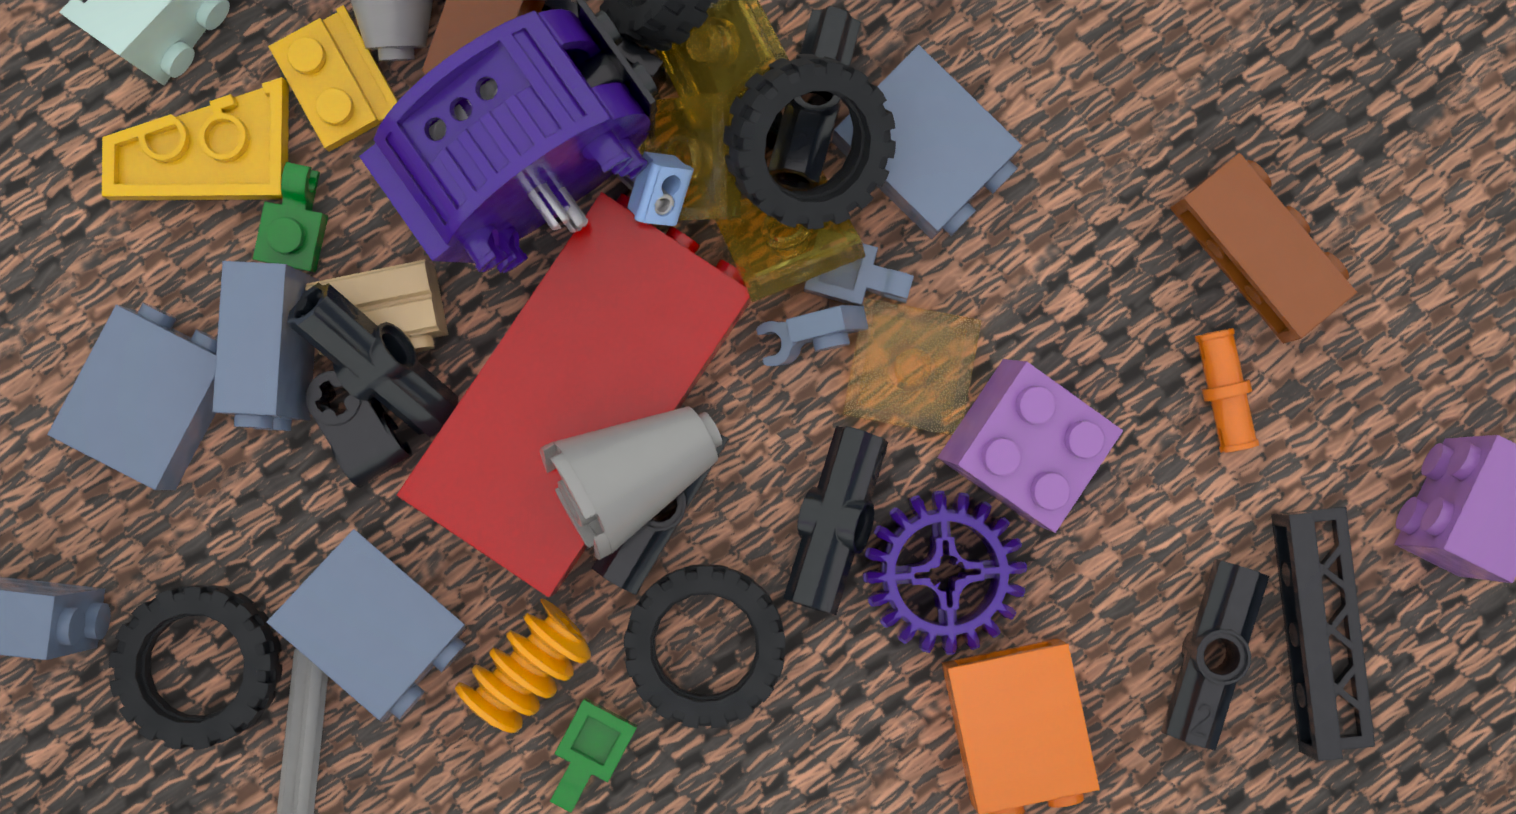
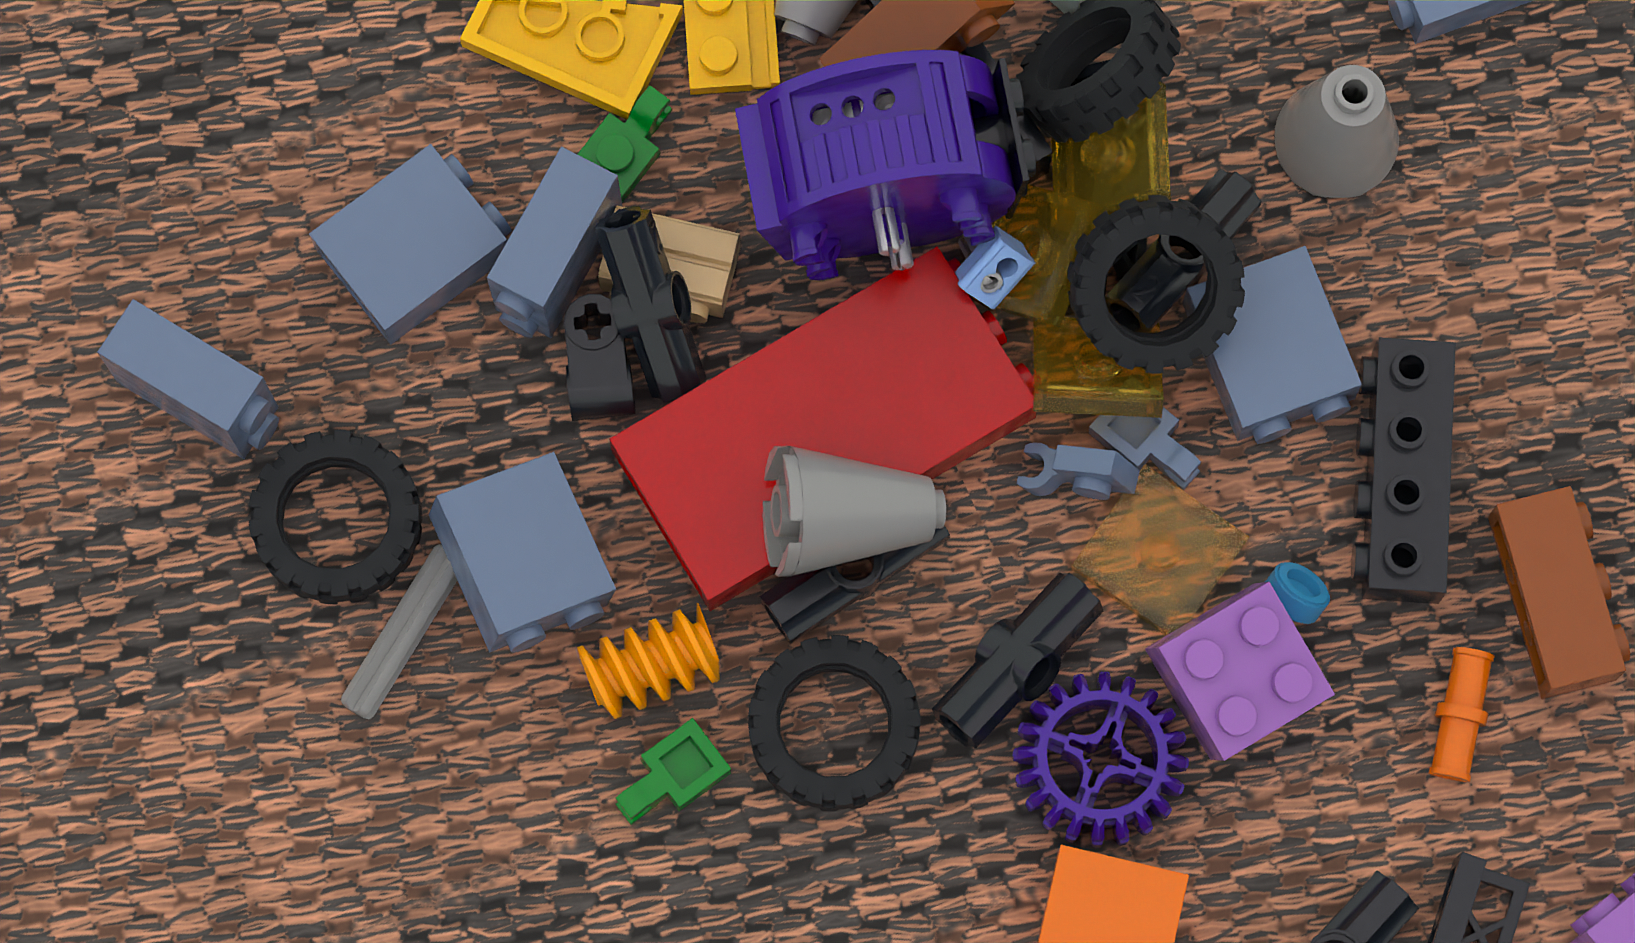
camera: 25 degrees right, 10 degrees down
(1045, 349) = (1299, 591): none -> dark azure tile
(1089, 200) = (1407, 470): none -> black brick

